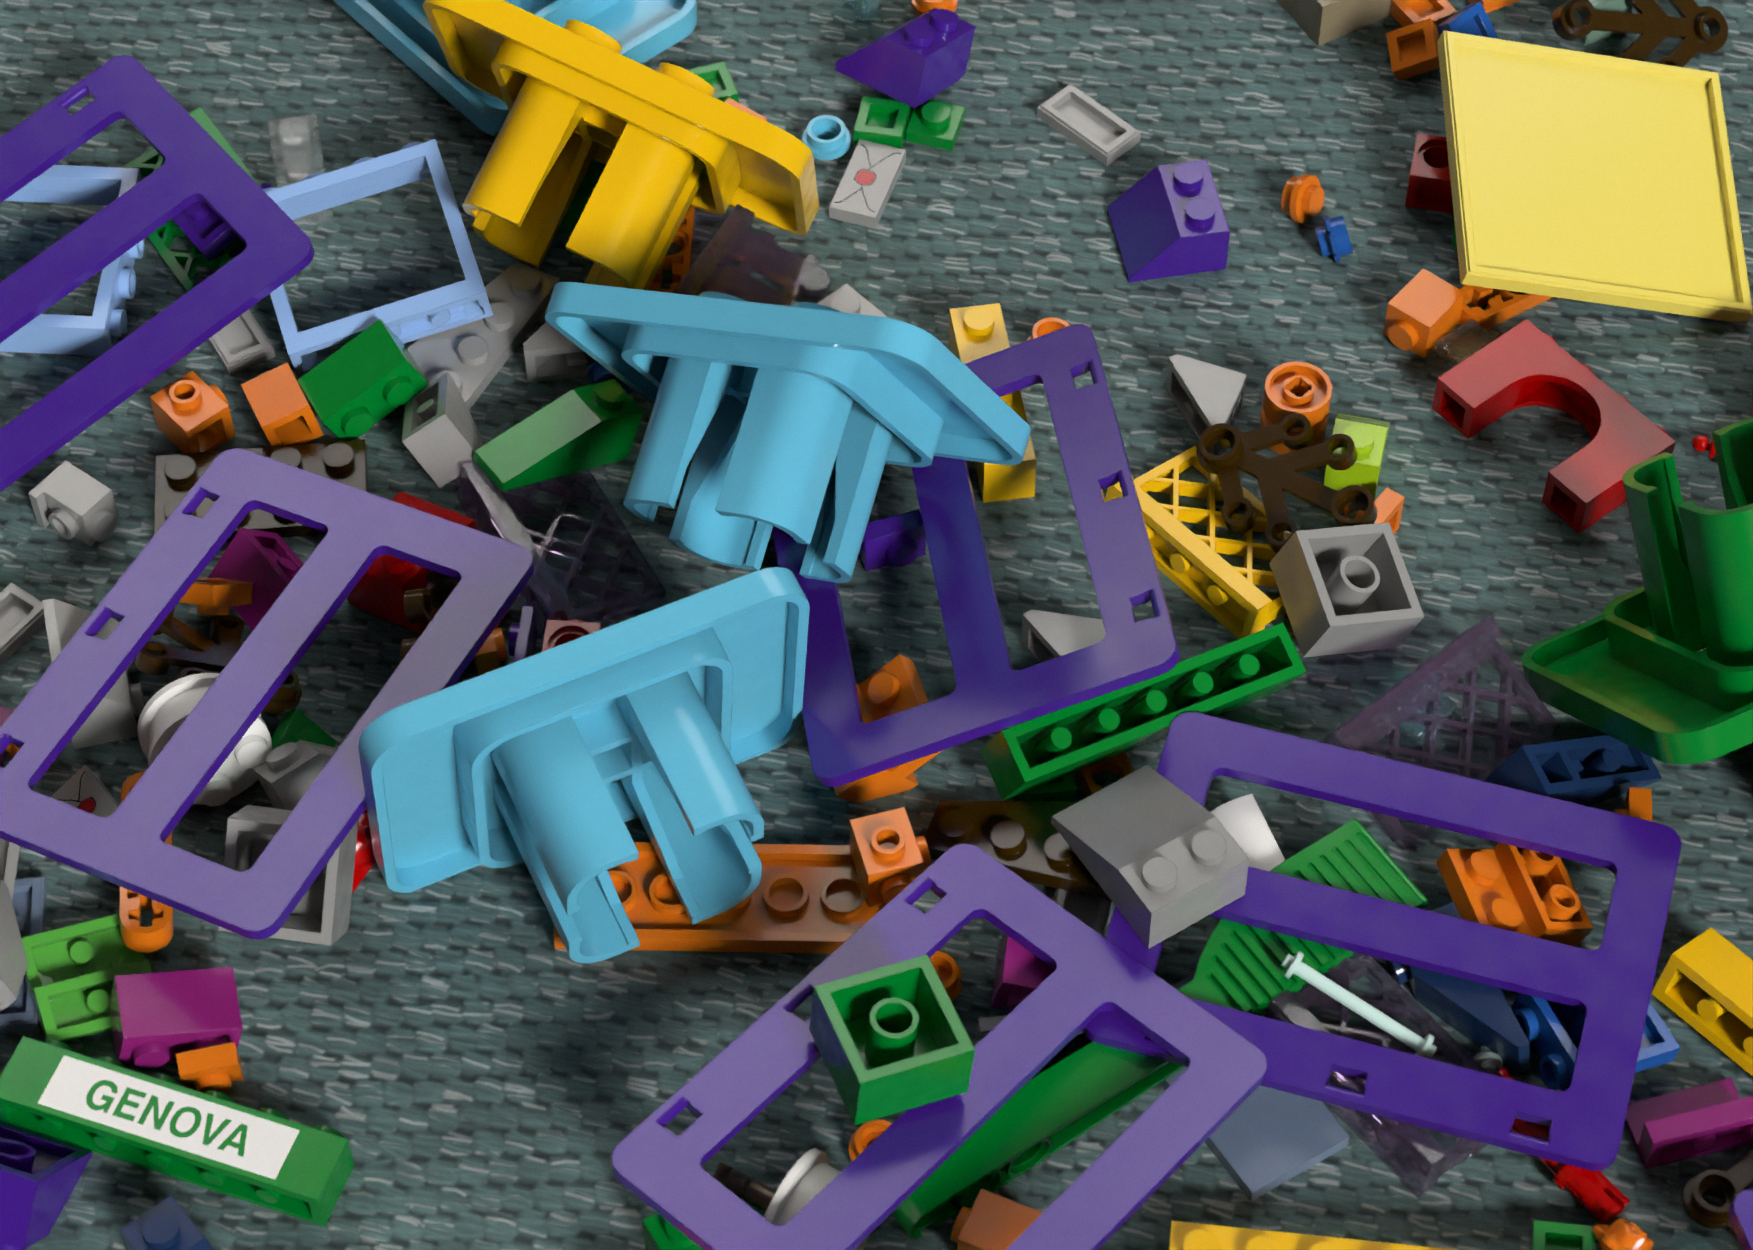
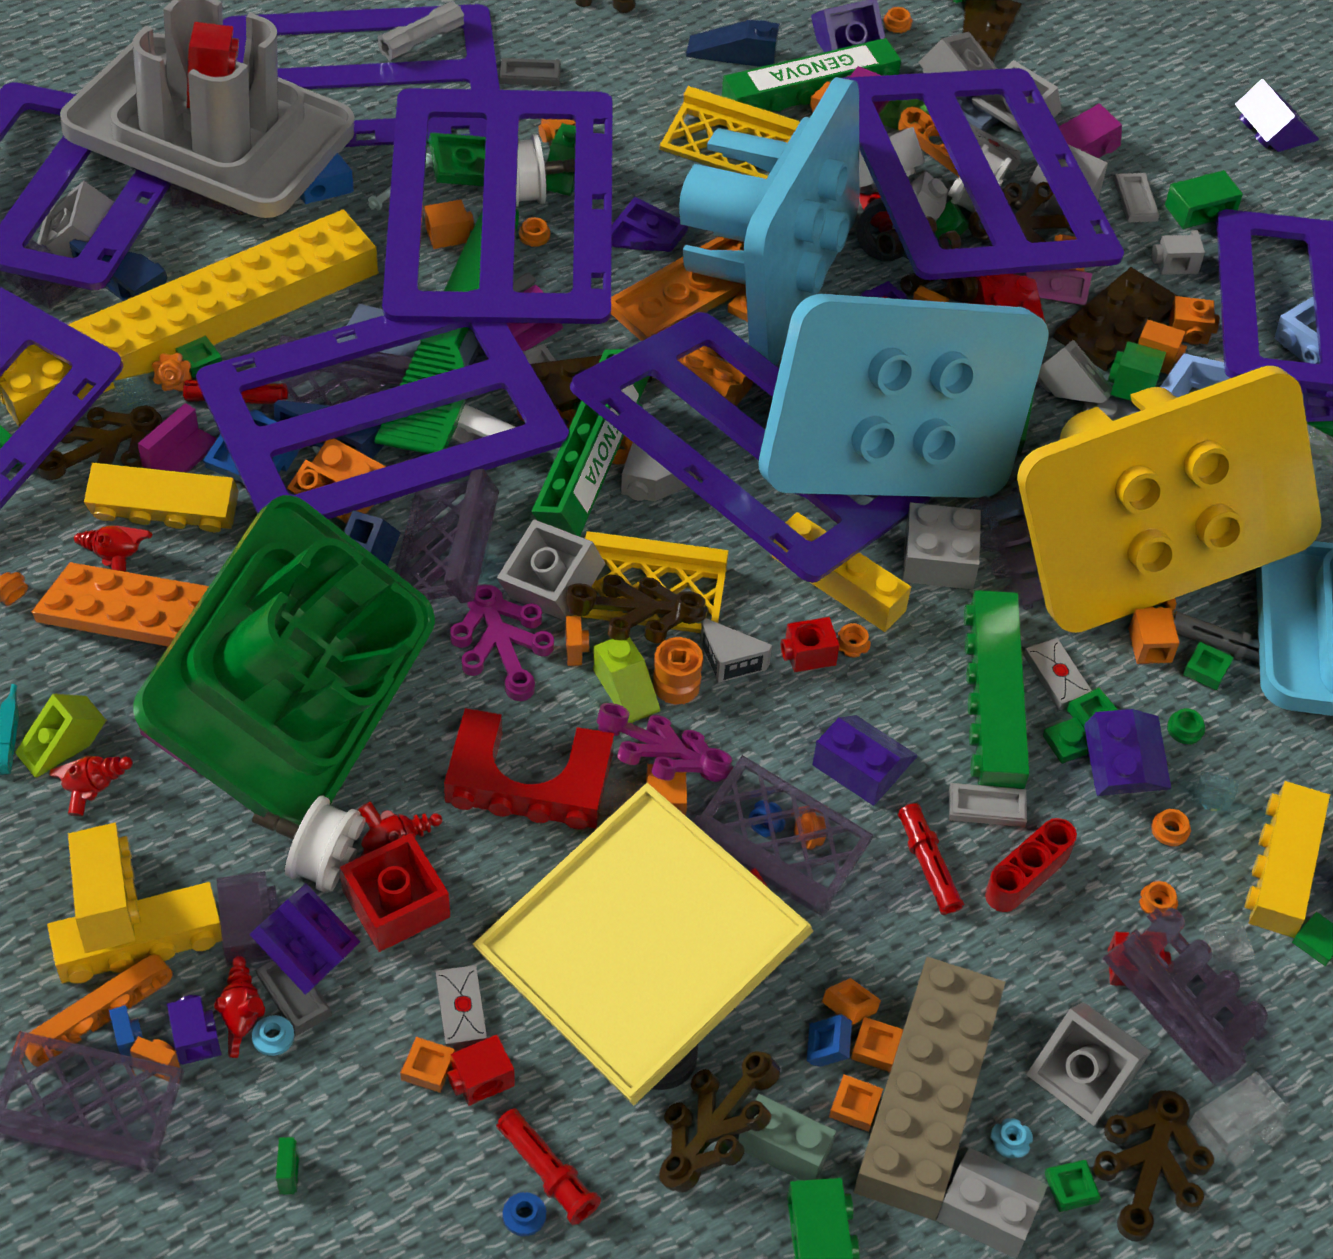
camera: 135 degrees right, 0 degrees up
(374, 1143) = (734, 115): none -> yellow fence
(698, 1022) = (646, 228): none -> dark purple wing
(803, 60) = (1186, 726): none -> green plate
(827, 137) = (1113, 675): medium azure plate -> none
(886, 854) = (642, 310): orange brick -> none
(891, 1039) = (540, 181): green brick -> none
(957, 196) = (997, 690): none -> green brick
(1116, 41) = (1035, 850): none -> red beam
(1122, 353) = (810, 644): none -> red brick
(1155, 853) = (516, 354): light grey slope -> none
(1199, 123) = (924, 844): none -> red pin
(1295, 966) = (329, 393): light aqua axle -> none
(1382, 187) = (770, 867): none -> clear purple fence
(1385, 334) = (664, 743): none -> magenta plant
(1457, 596) = (501, 635): none -> magenta plant

